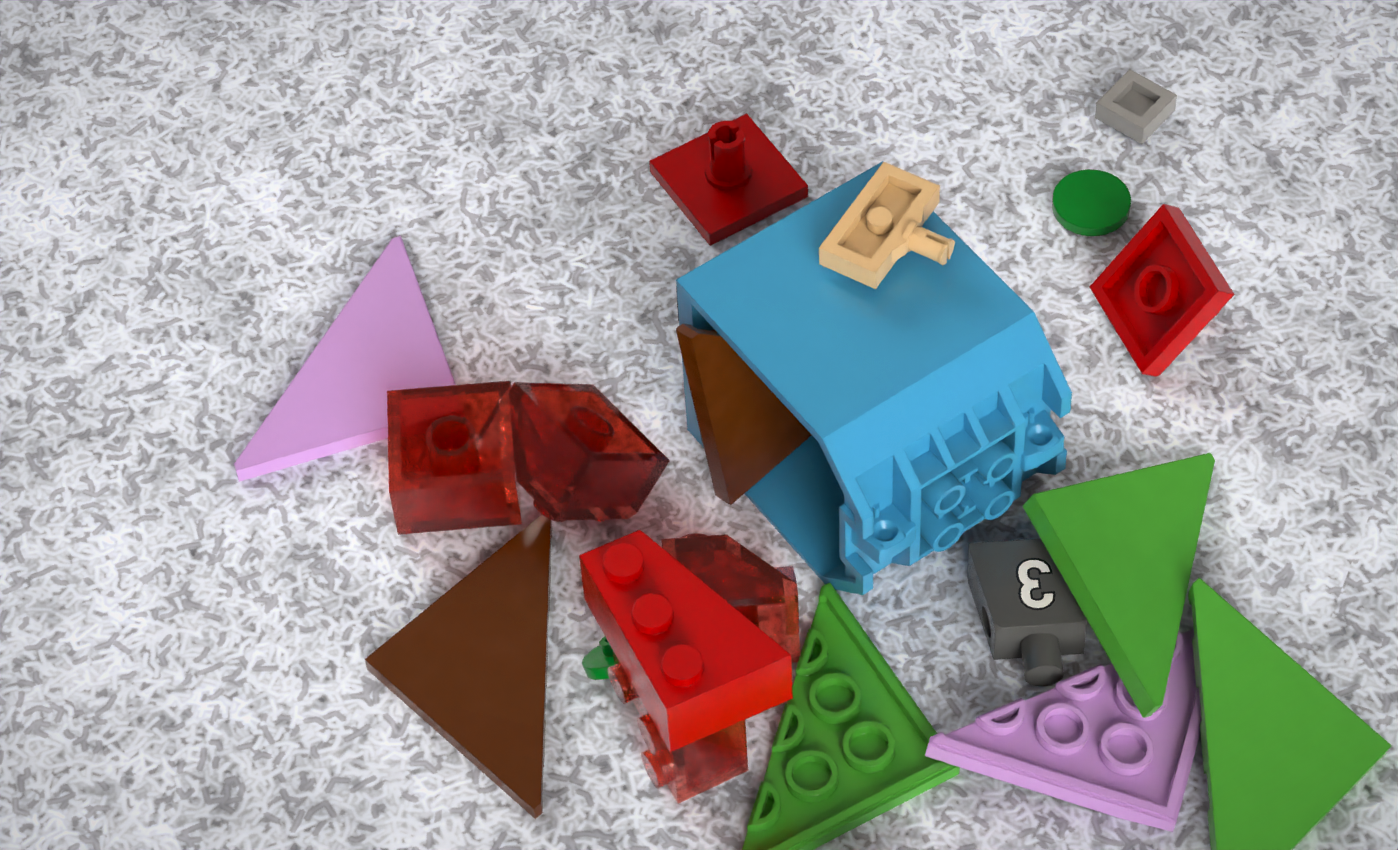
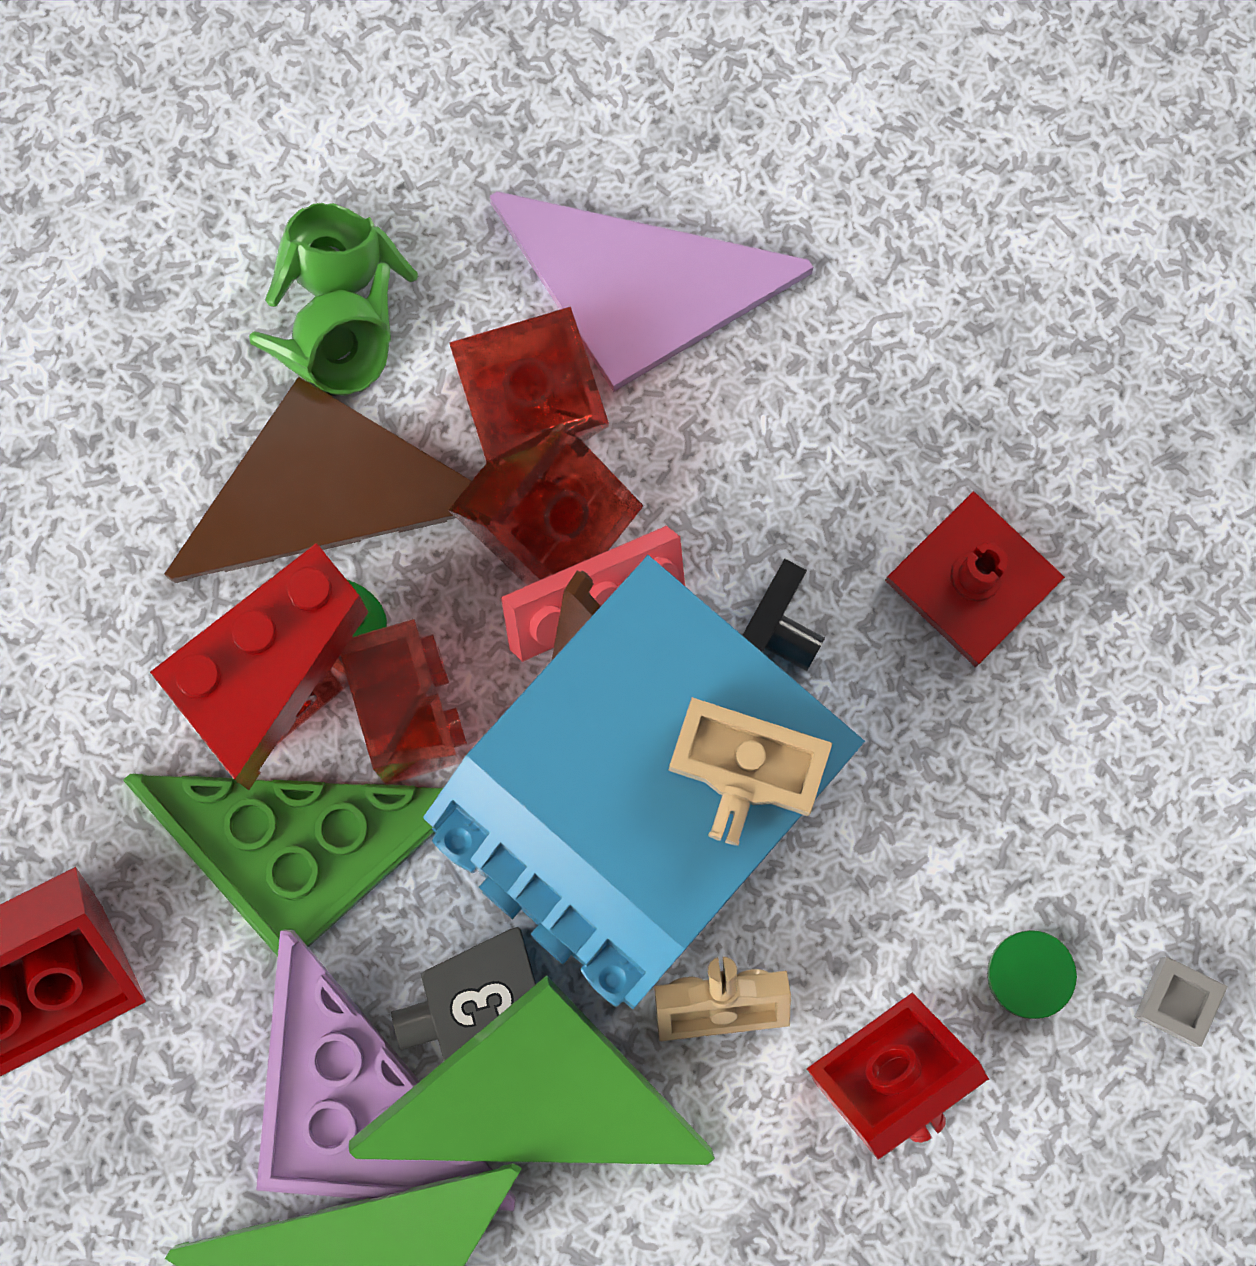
camera: 70 degrees right, 25 degrees up
(251, 598) = (320, 269): none -> bright green piece
(339, 601) = (332, 328): none -> bright green piece
(667, 432) = (535, 609): none -> coral plate
(1082, 423) = (723, 1003): none -> tan plate

